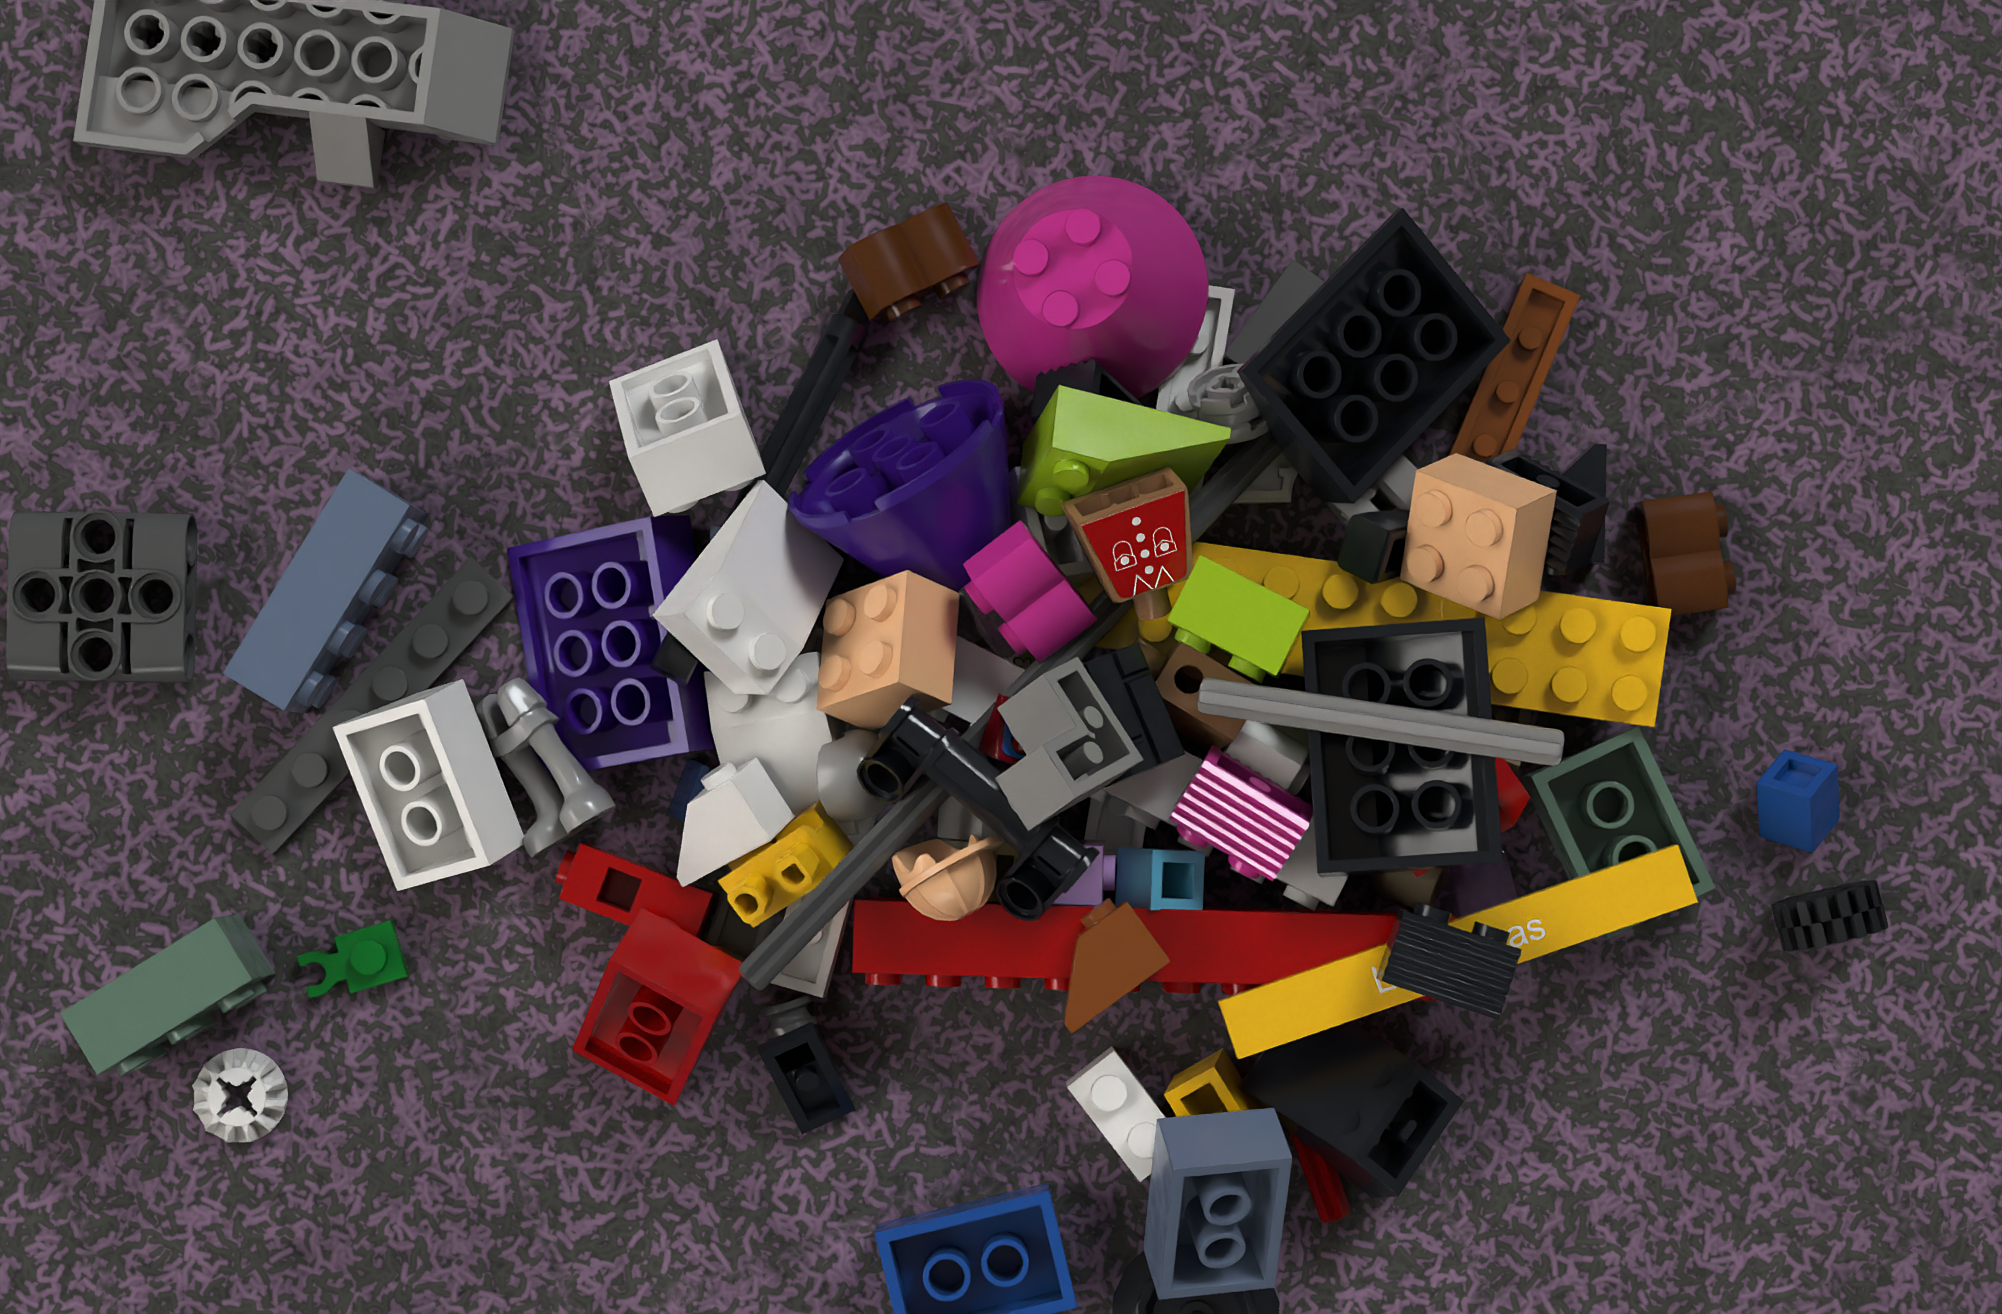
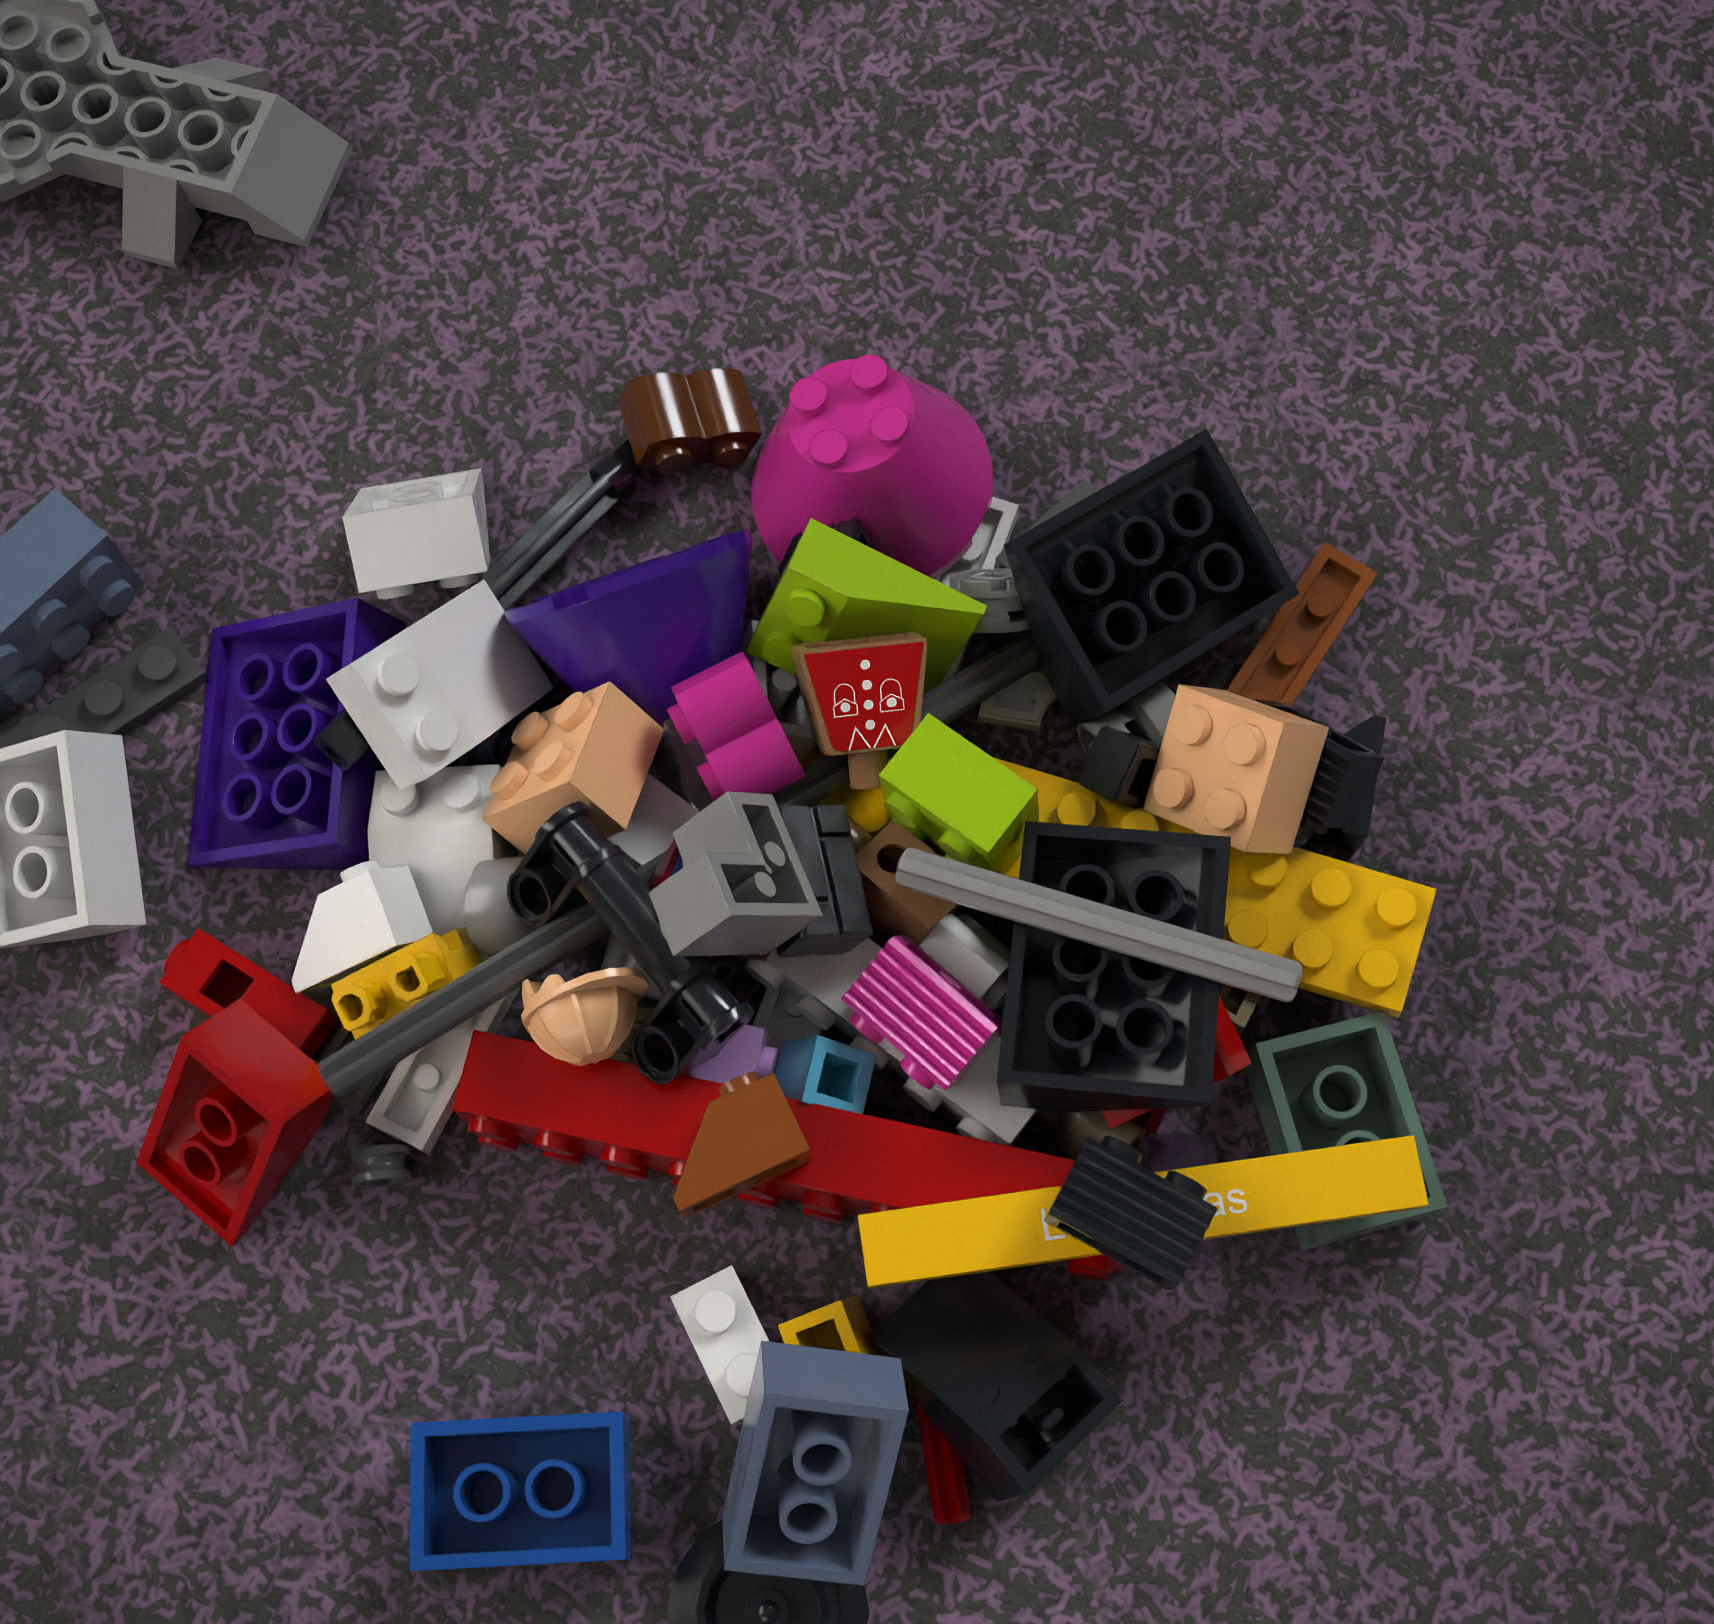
camera: 10 degrees right, 15 degrees down
(515, 724) = (199, 887): light grey piece -> none
(807, 1077) = (382, 1232): black slope -> none
(1684, 554) = (1453, 850): reddish brown brick -> none
(1798, 800) = (1549, 1140): blue panel -> none
(1829, 915) = (1573, 1269): black tyre -> none

